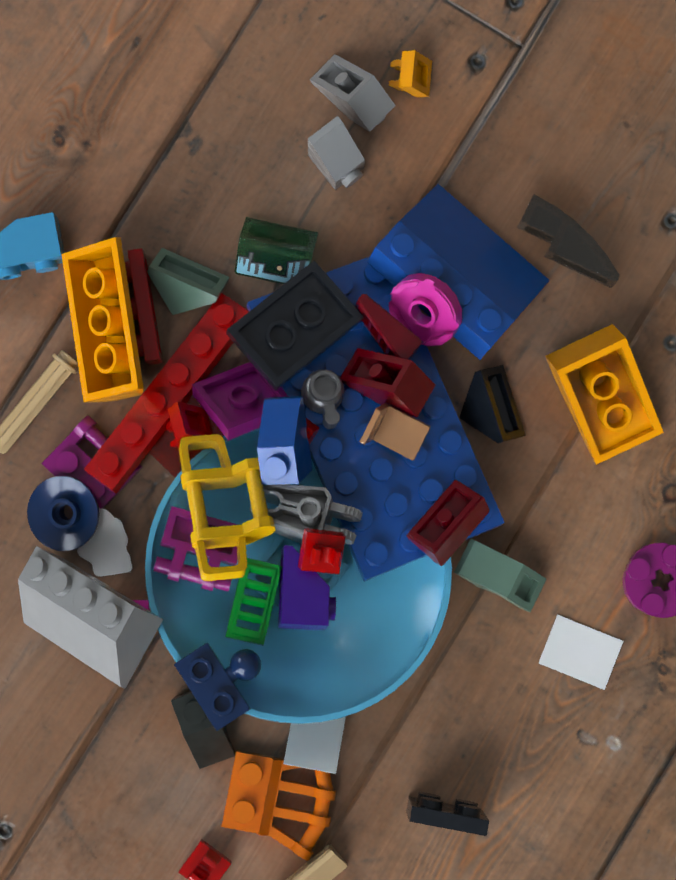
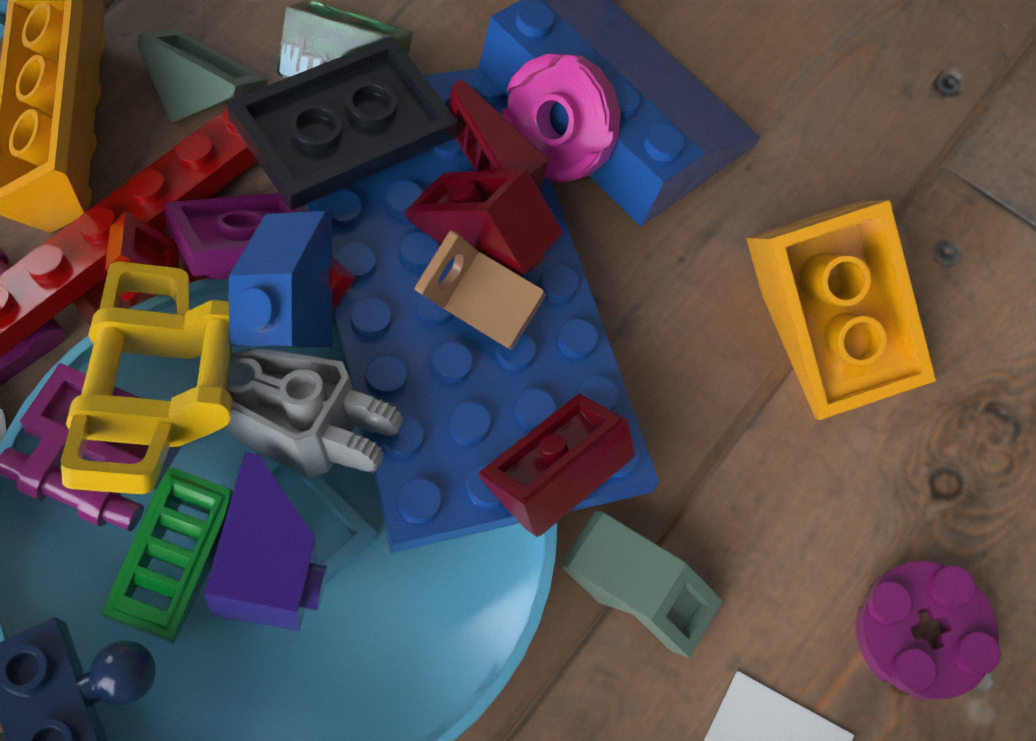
camera: 10 degrees right, 15 degrees down
(143, 307) = (121, 96): red plate -> none
(321, 551) = (309, 466): red tile -> none
(323, 394) = (372, 227): flat silver piece -> none
(492, 406) = (652, 304): black slope -> none
(568, 241) = (794, 82): clear smoke slope -> none

